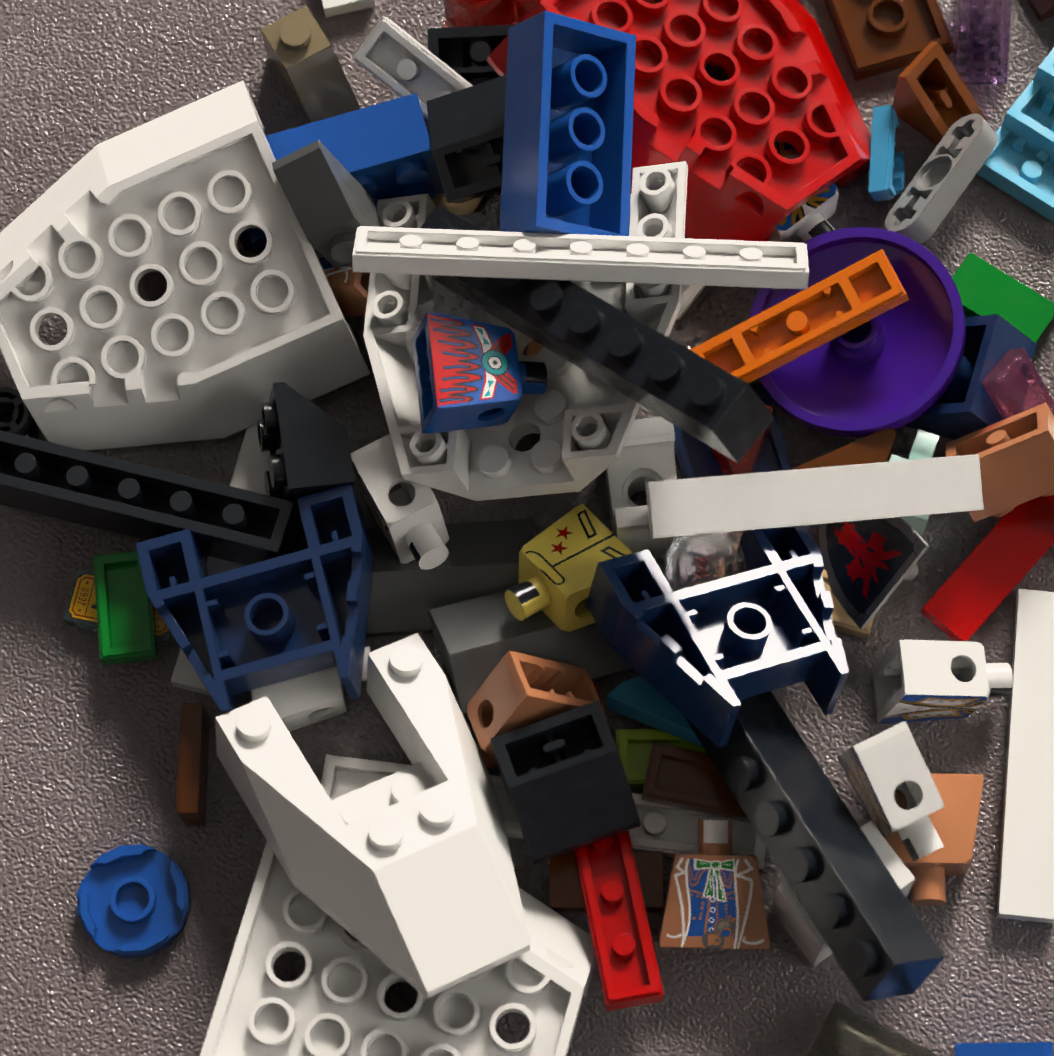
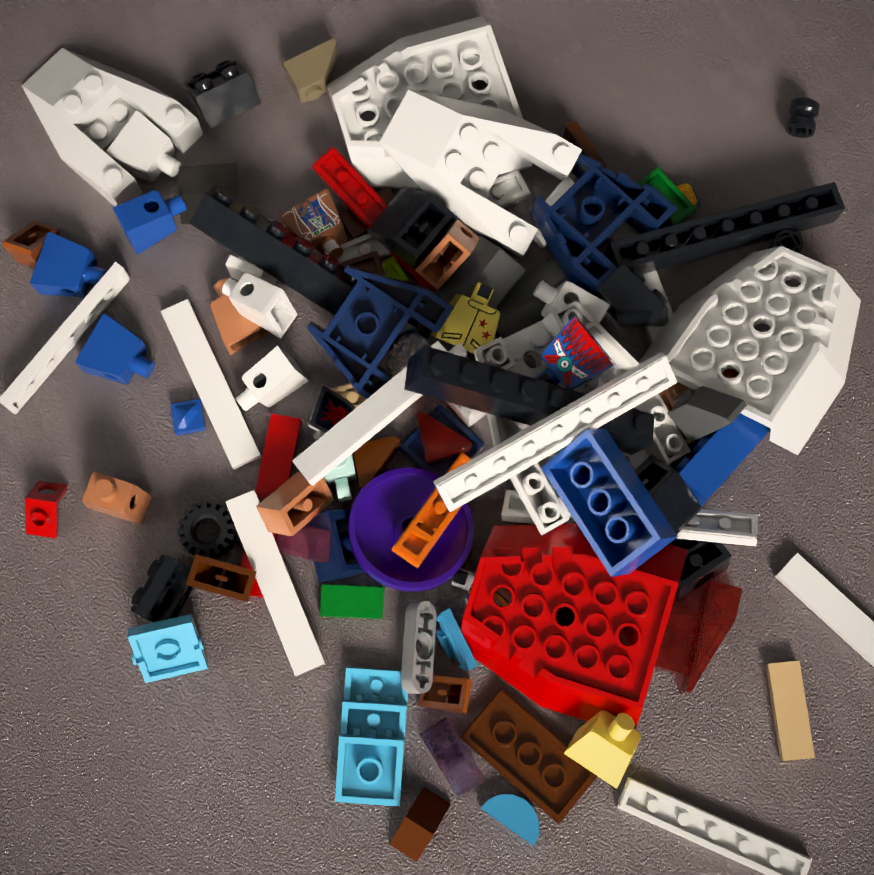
camera: 145 degrees right, 5 degrees up
(133, 901) = (569, 88): blue tile -> none
(308, 66) = (779, 511): dark tan slope -> none

